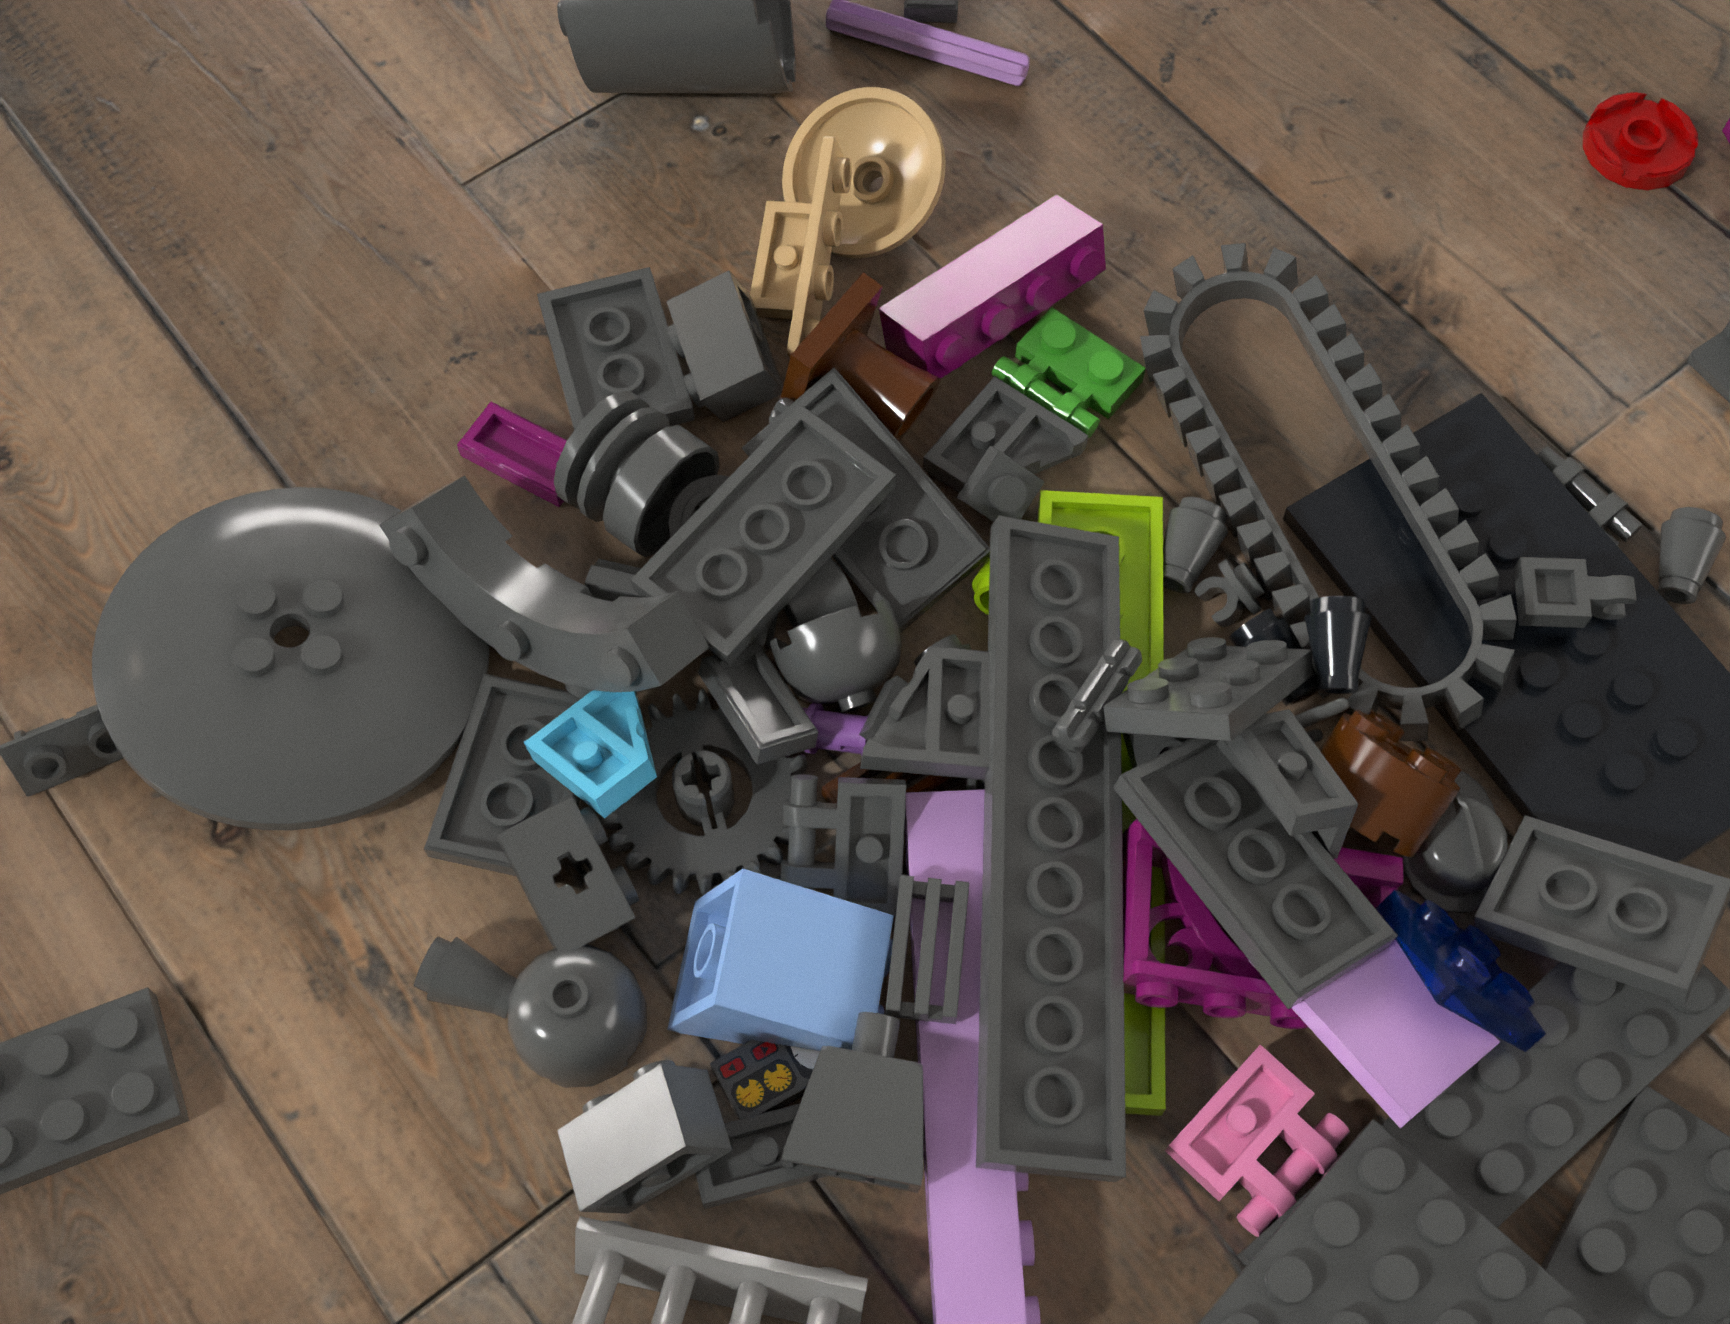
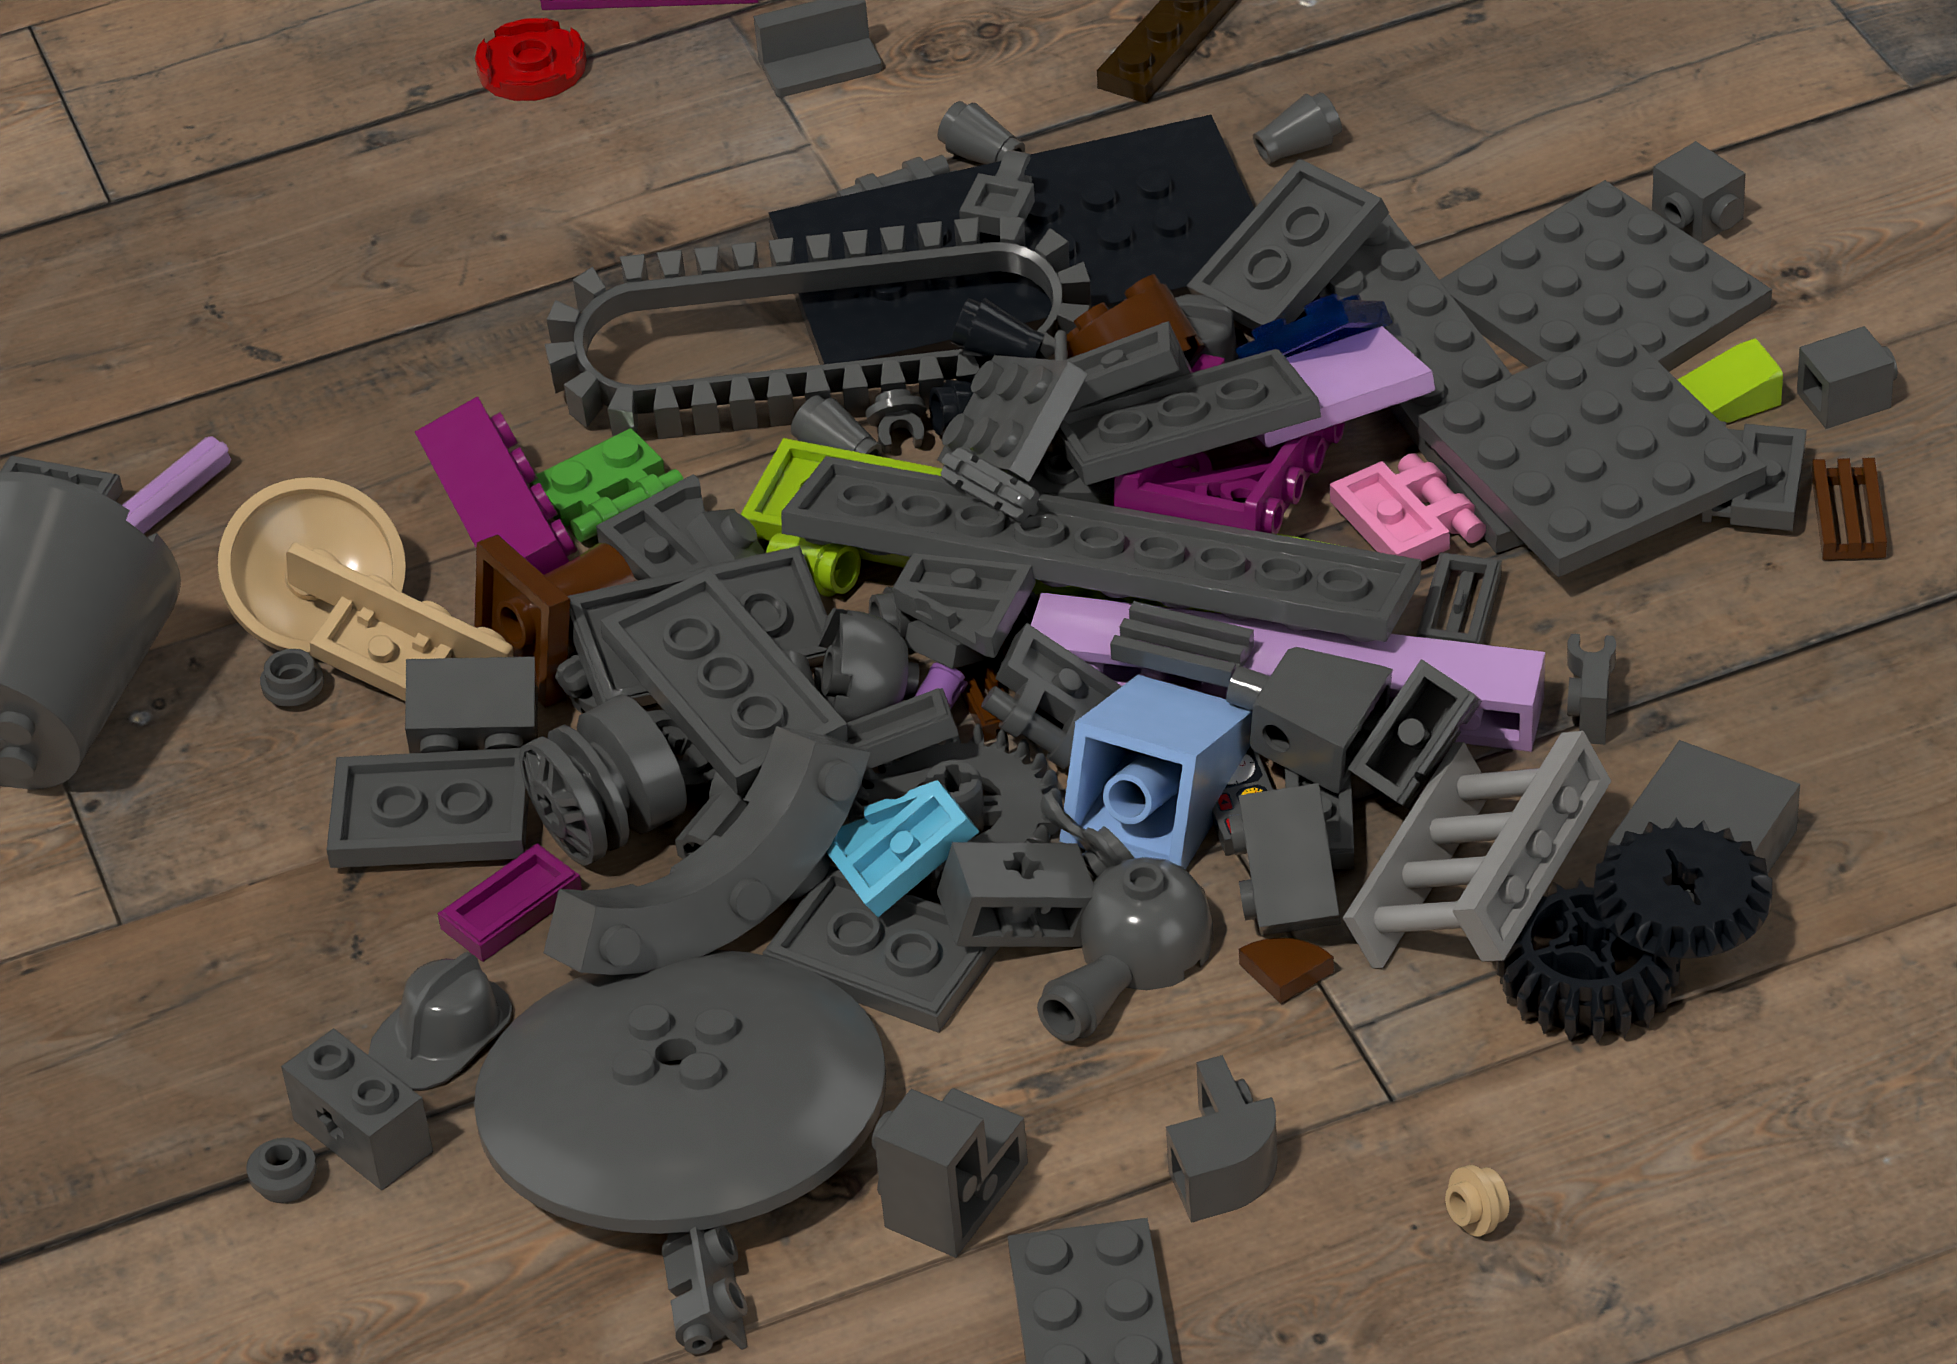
camera: 70 degrees left, 20 degrees down
(190, 390) = (282, 1169): none -> dark grey plate
(196, 909) = (945, 1165): none -> dark grey brick
(237, 408) = (357, 1109): none -> dark grey brick
(265, 1178) = (1226, 1153): none -> dark grey brick
(371, 447) = (442, 1022): none -> dark grey piece
(545, 1172) = (1285, 965): none -> reddish brown tile
(650, 925) = (1101, 846): none -> dark grey plate
(747, 206) = (291, 678): none -> dark grey plate
(852, 1235) = (1415, 734): none -> dark grey brick
(1132, 1262) = (1470, 567): none -> dark grey tile

